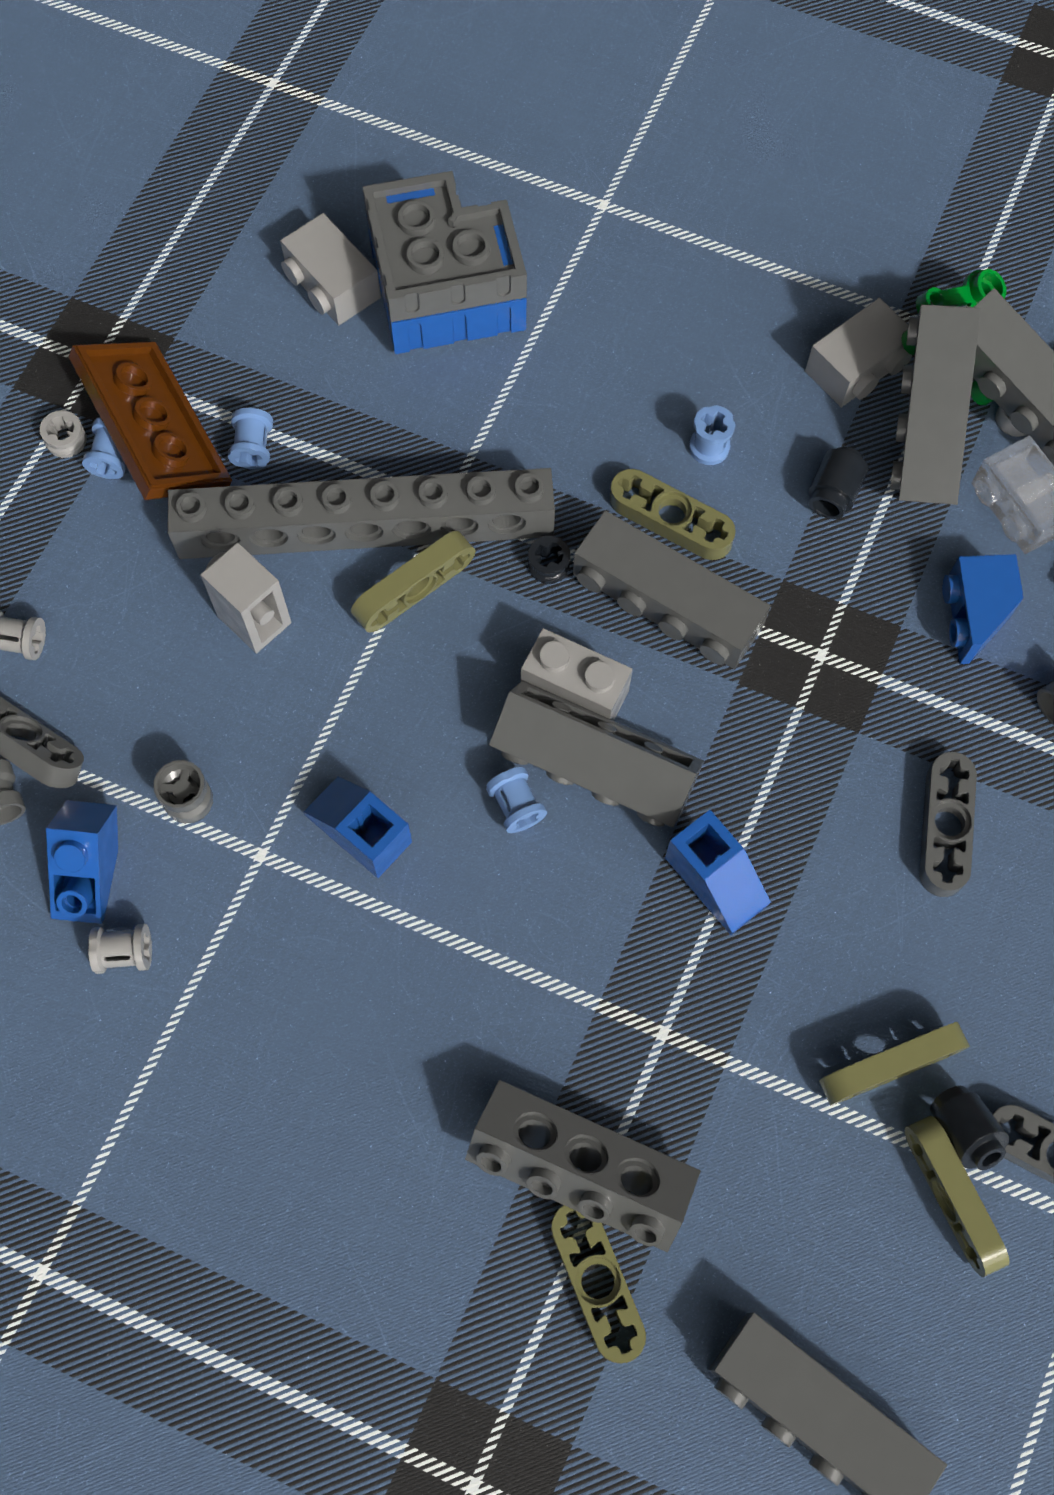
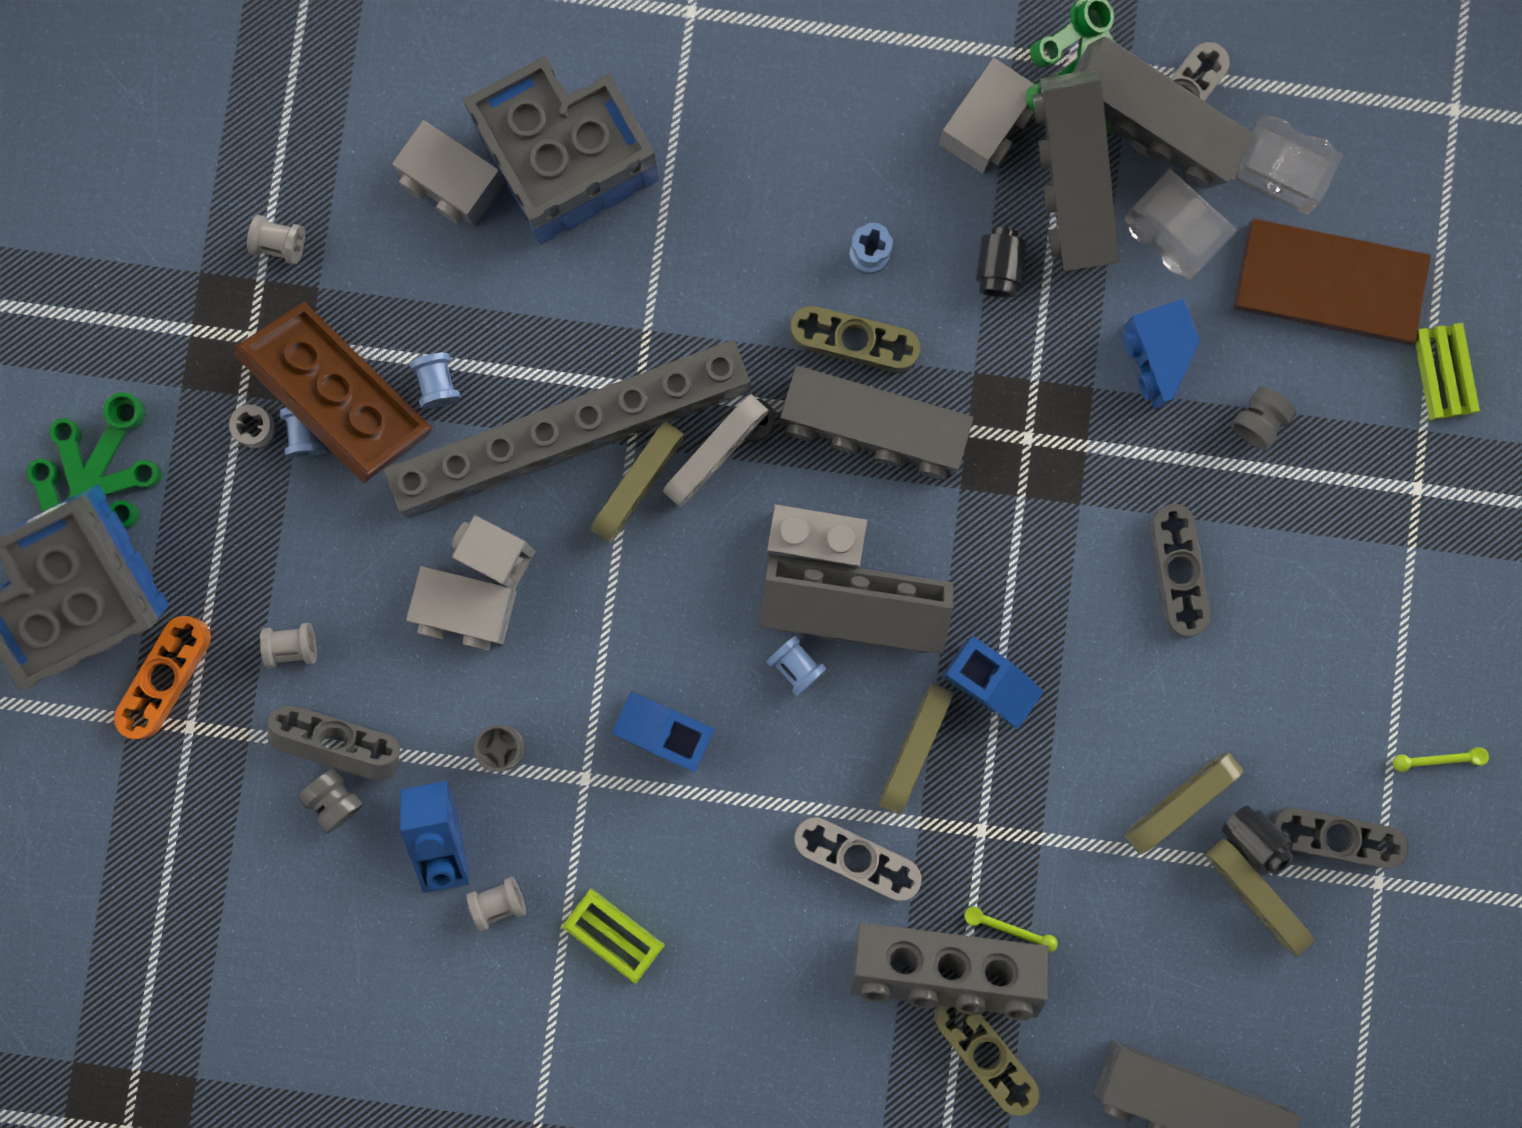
camera: 20 degrees left, 15 degrees up
(150, 282) = (275, 239): none -> light grey bush
(196, 646) = (461, 607): none -> light grey brick
(255, 1059) = (625, 921): none -> lime tile
(500, 569) = (715, 450): none -> light grey beam
(556, 1035) = (893, 862): none -> light grey beam
(615, 920) = (915, 748): none -> olive beam
(629, 1122) = (975, 916): none -> lime hinge

